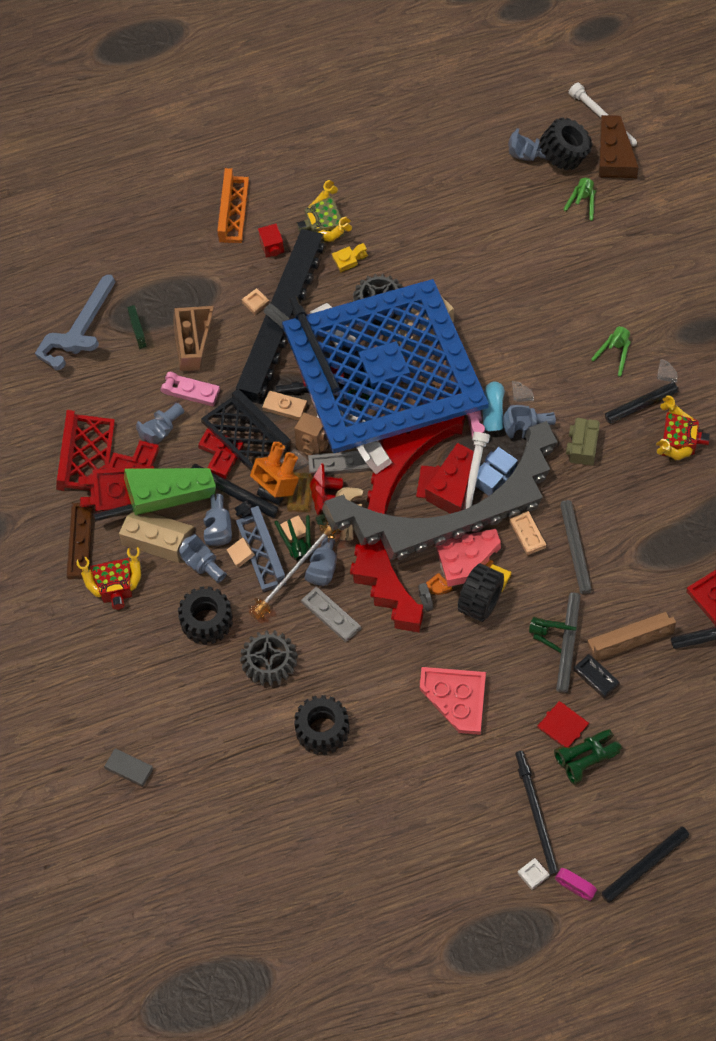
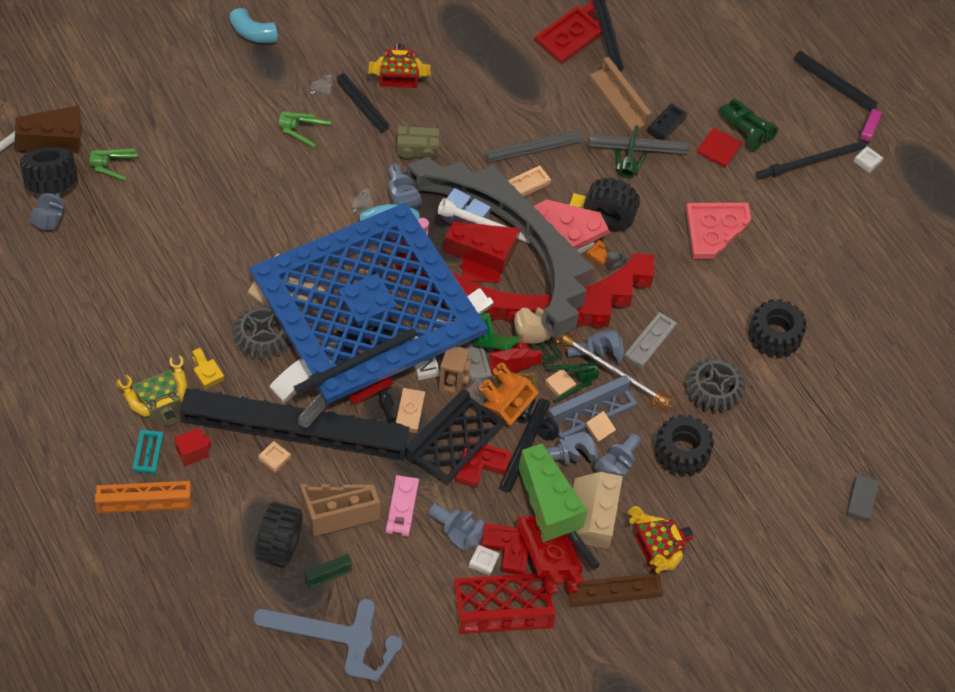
camera: 110 degrees left, 5 degrees down
(127, 444) = (484, 560): none -> white tile
(169, 286) = (279, 533): none -> black tyre
(273, 215) = (145, 468): none -> teal tile
(344, 468) = (493, 340): none -> green bracket

